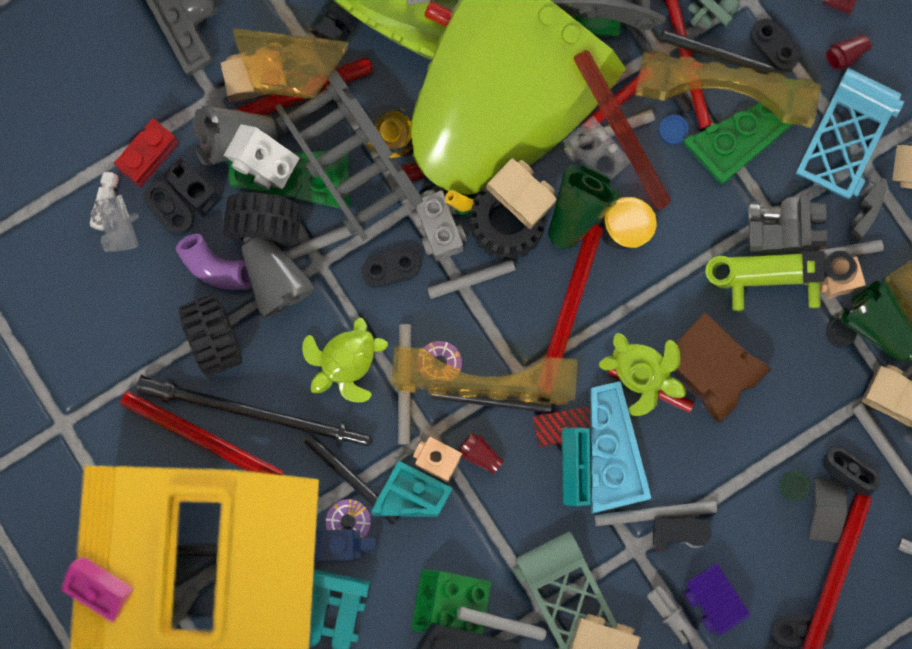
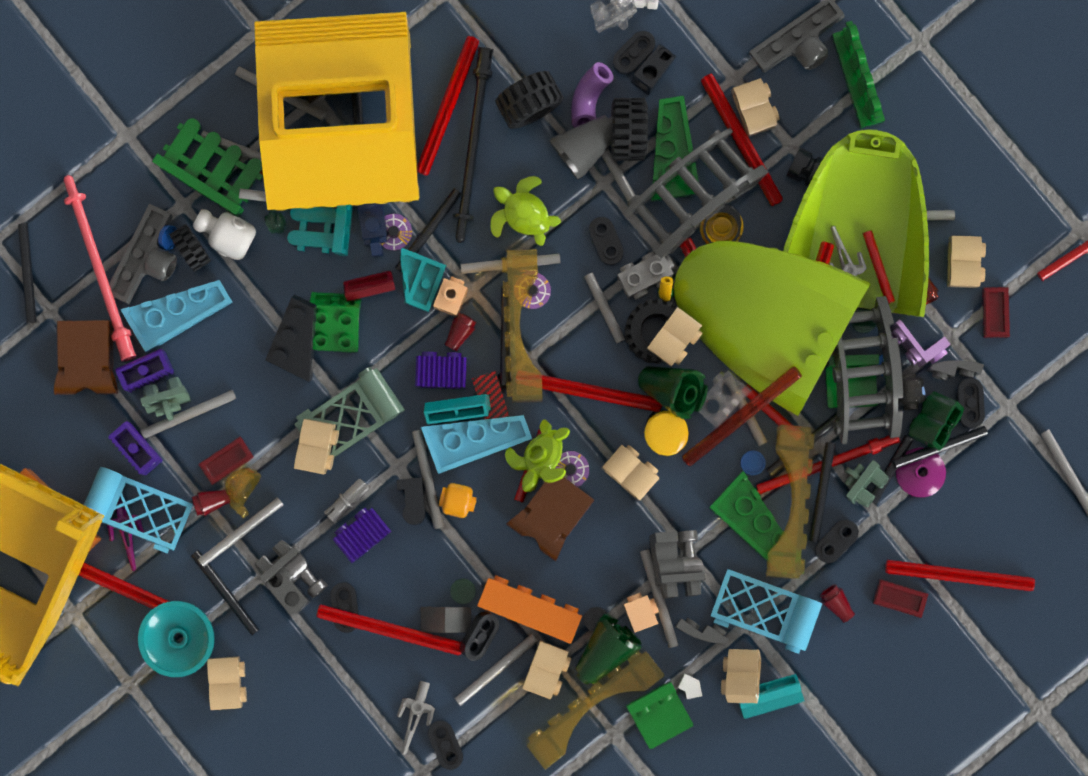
camera: 80 degrees right, 5 degrees up
(96, 588) = (309, 35): dark pink slope -> none
(146, 153) = (677, 28): red brick -> none
(218, 127) = (700, 95): dark grey cone -> none
(261, 157) = (681, 120): white brick -> none
(288, 62) = (765, 133): clear yellow wing -> none
(412, 557) = (368, 285): none -> dark red tile
(501, 623) = (323, 363): light grey bar -> none
(527, 481) = (441, 371): none -> dark purple brick
(657, 333) = (576, 467): none -> piece
(672, 269) = (631, 472): none -> tan brick
(685, 479) = (457, 500): none -> light orange head
(791, 269) = (638, 560): lime piece -> none
(825, 408) = (529, 610): none -> orange brick

